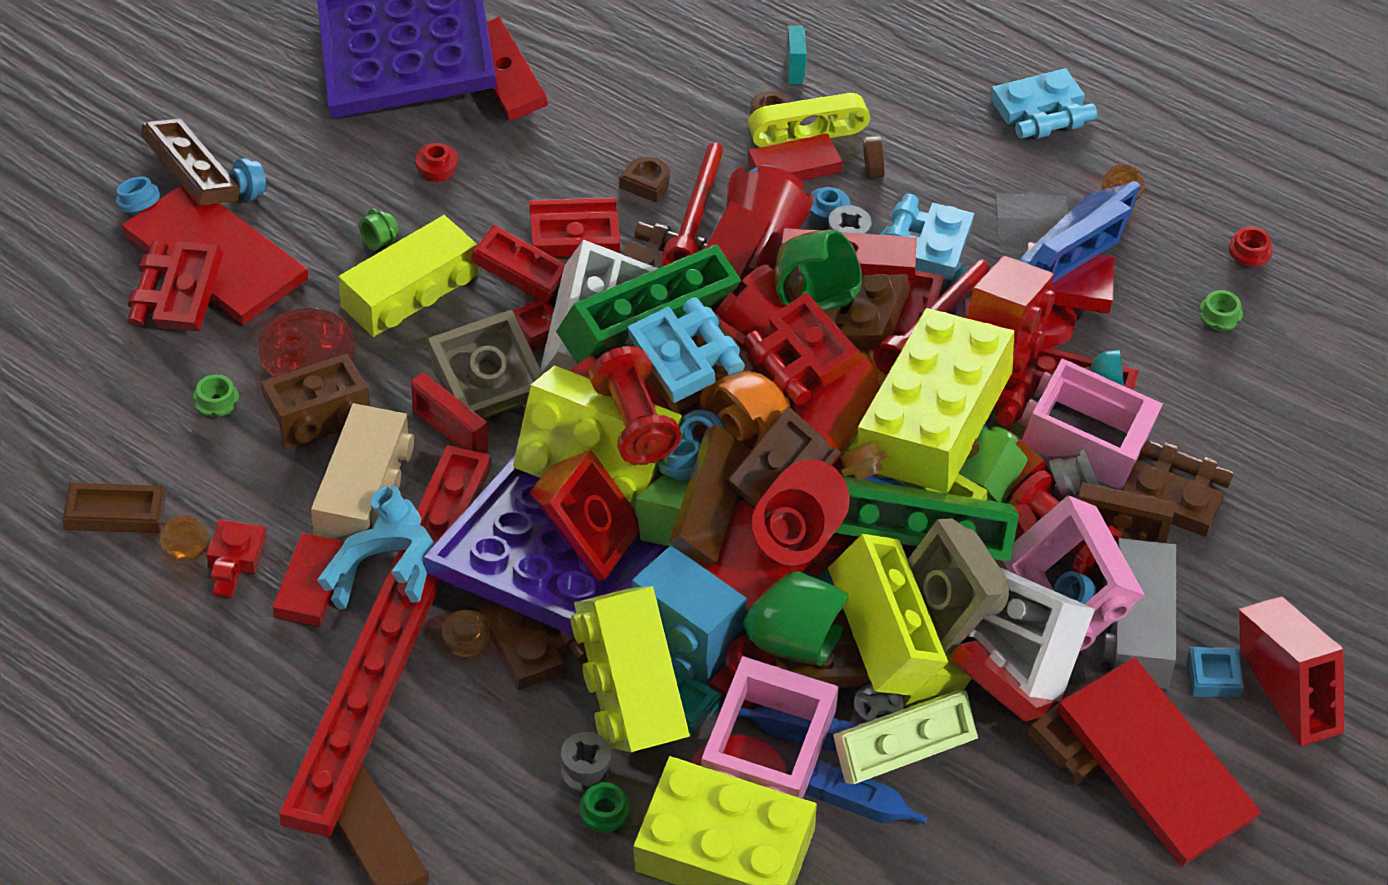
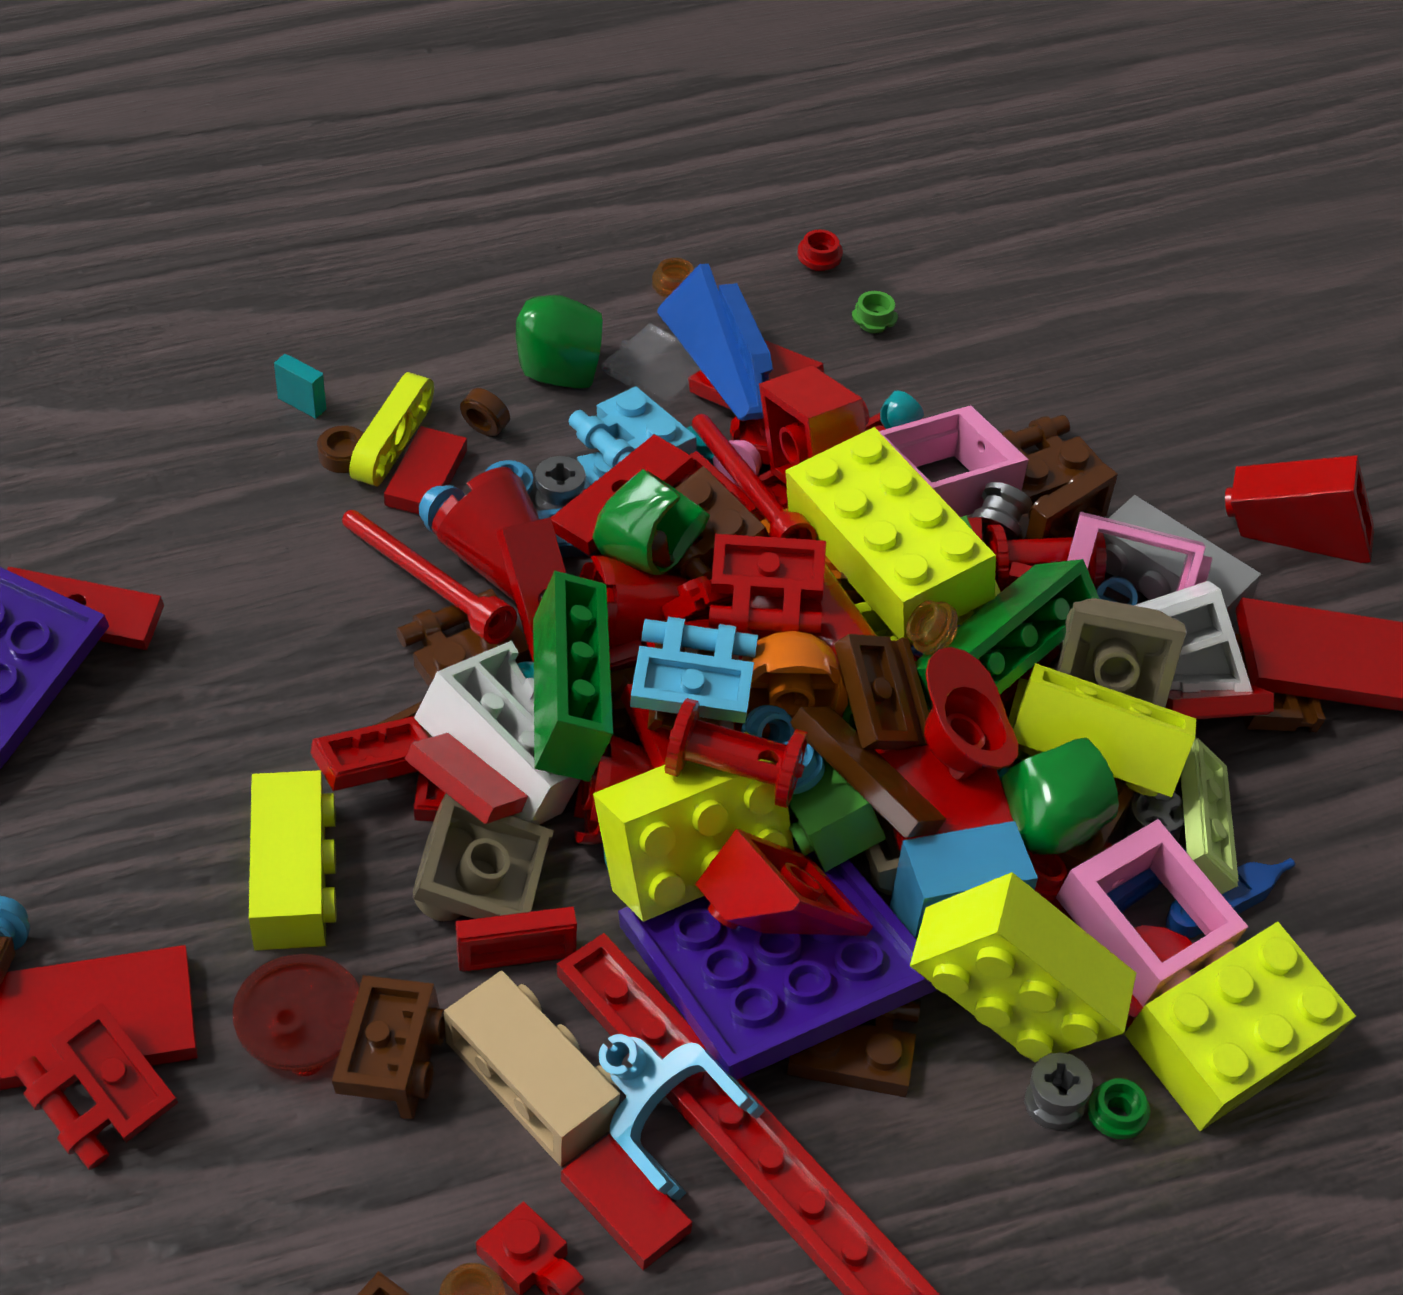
camera: 55 degrees left, 0 degrees up
(215, 396) = (287, 1128): bright green plate -> none
(378, 229) = (191, 849): bright green plate -> none
(436, 162) = (144, 753): red plate -> none
(466, 632) = (810, 1097): clear orange plate -> none
(533, 313) = (466, 778): none -> red tile
(563, 224) = (352, 683): red plate -> none
(646, 178) = (336, 590): reddish brown tile -> none
(973, 147) = (559, 341): none -> green piece
(1043, 104) = (517, 264): medium azure plate -> none
(1215, 672) = (1266, 559): dark azure tile -> none

